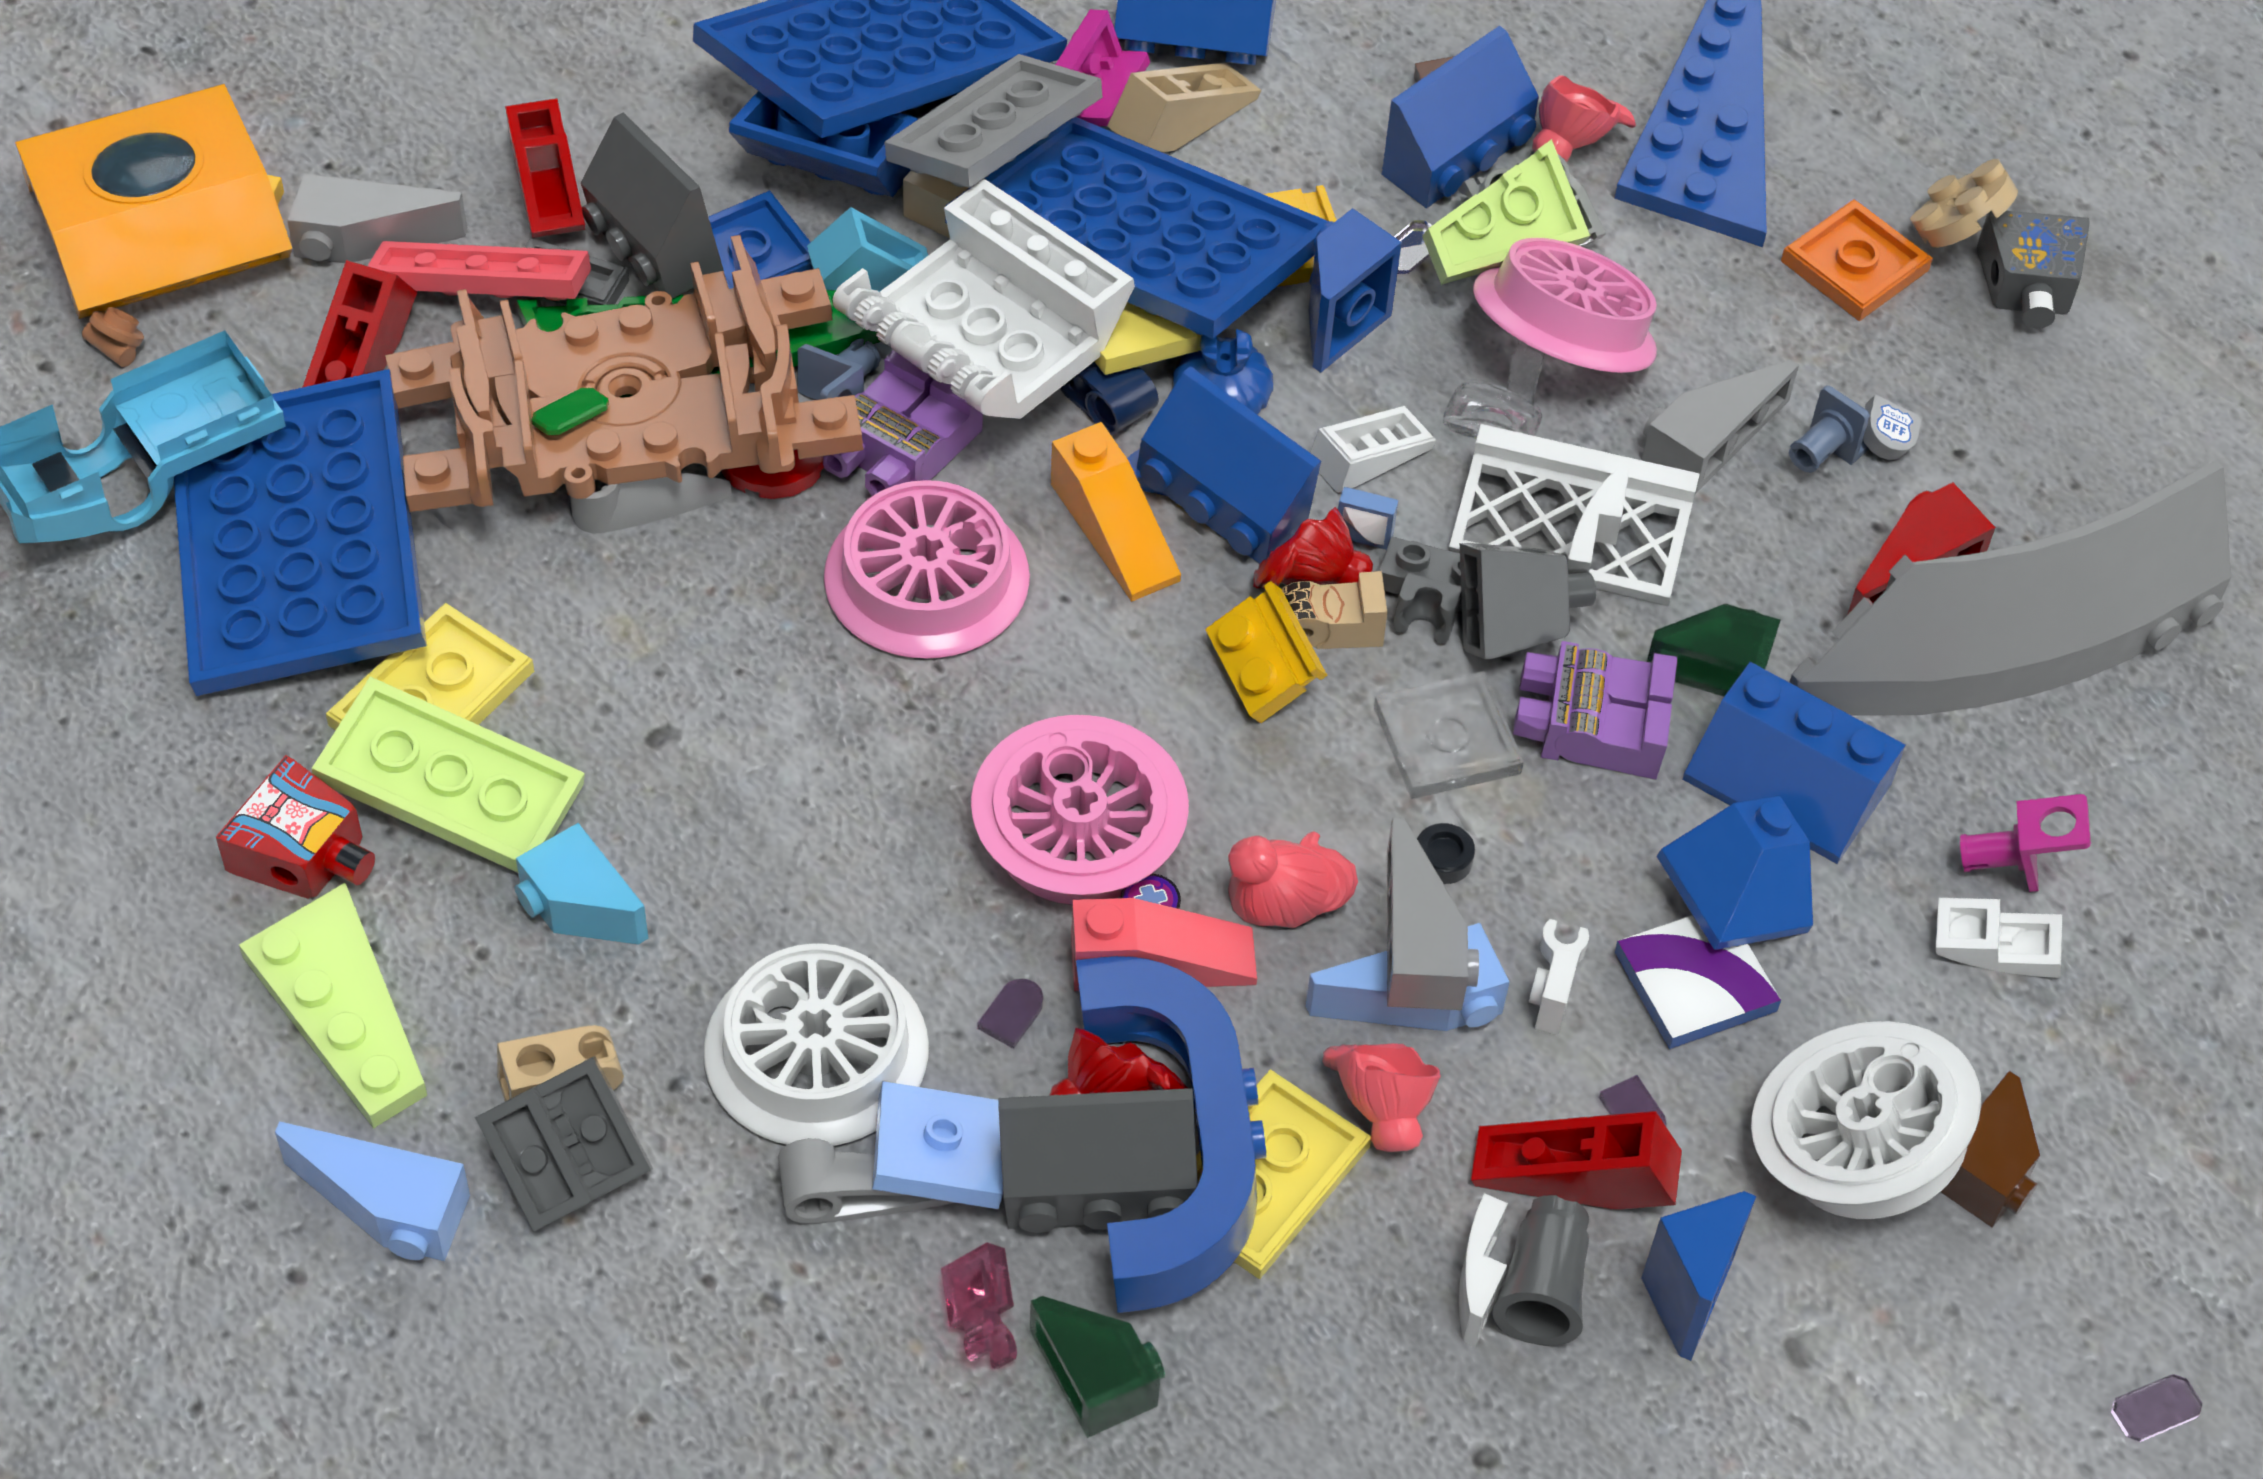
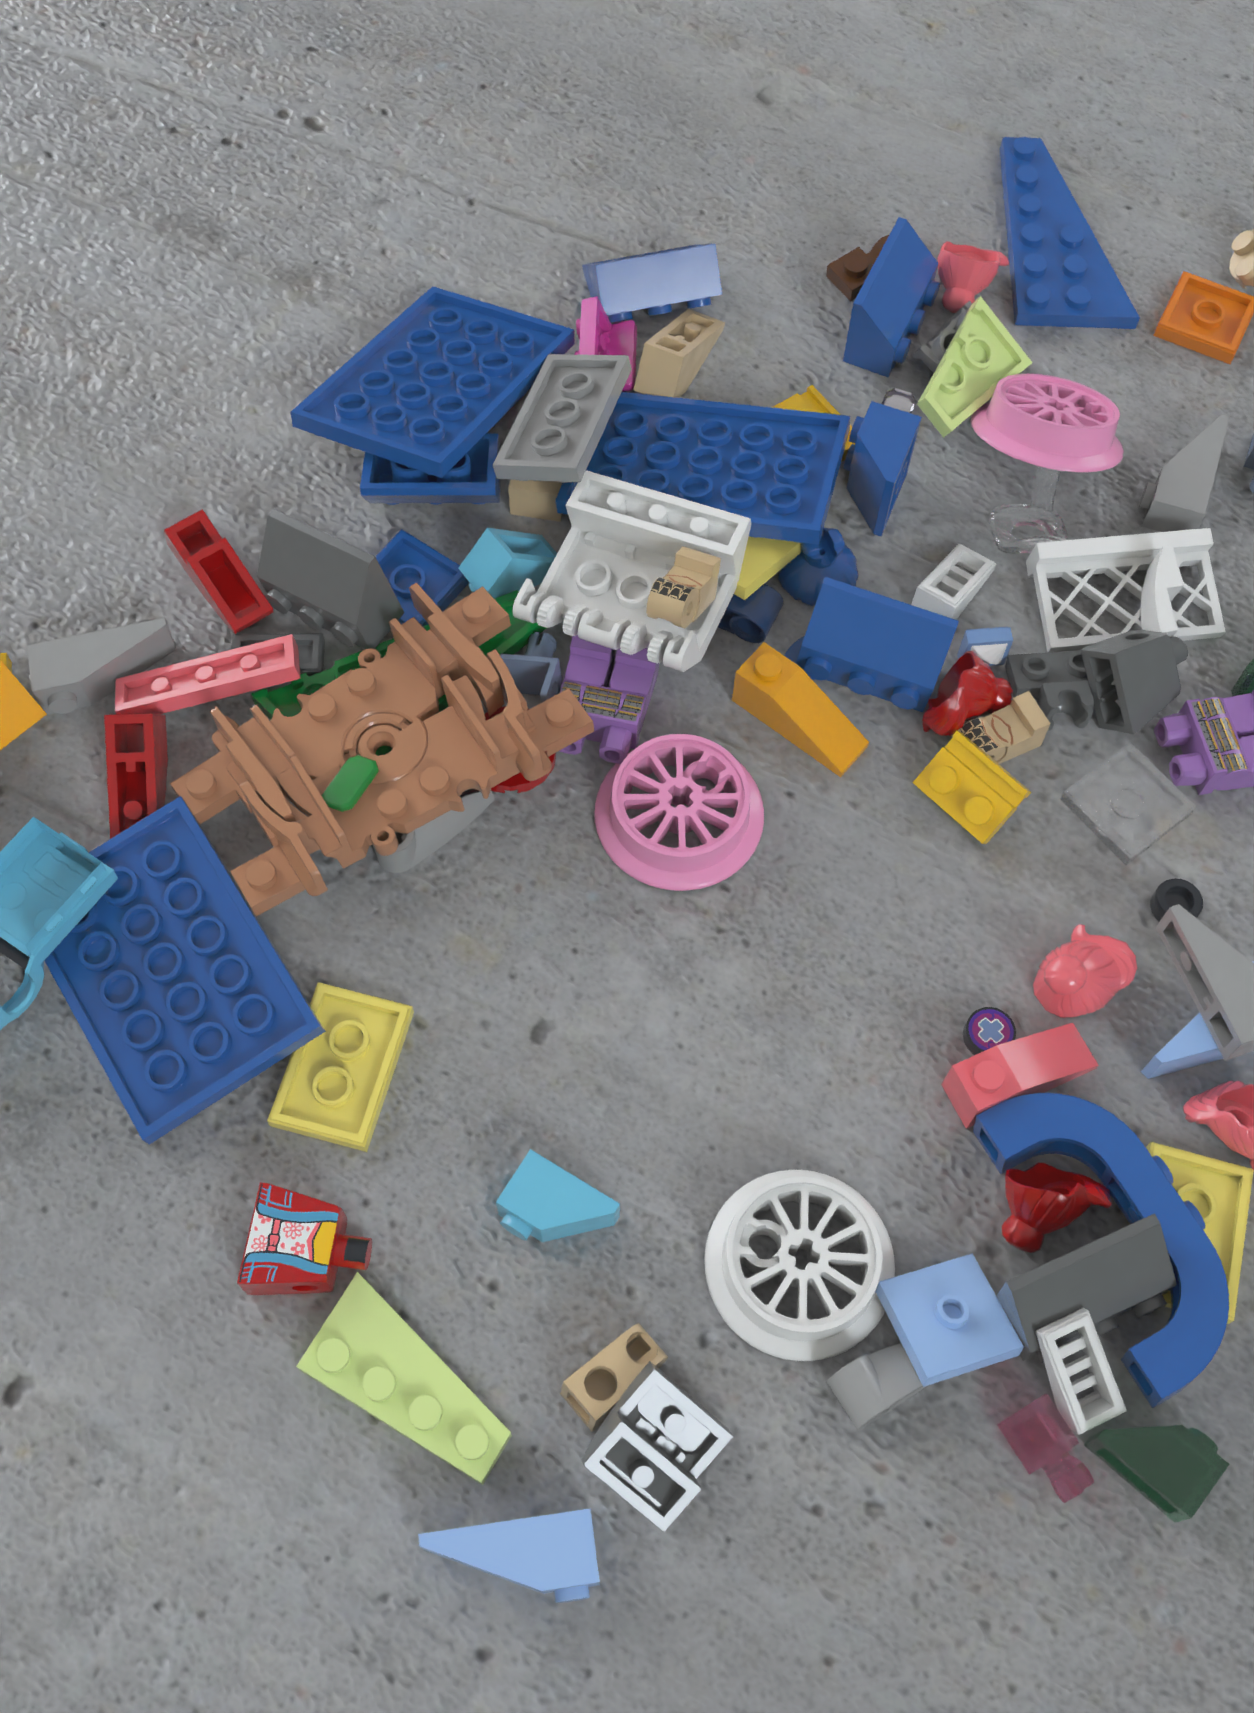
camera: 20 degrees left, 10 degrees up
(447, 774) = (399, 1143): yellowish green plate -> none
(1012, 1011) = (932, 1167): clear purple piece -> none
(1025, 329) = (685, 589): none -> tan leg
(1052, 1288) = (1106, 1399): none -> white slope
(1079, 813) = (888, 923): bright pink piece -> none

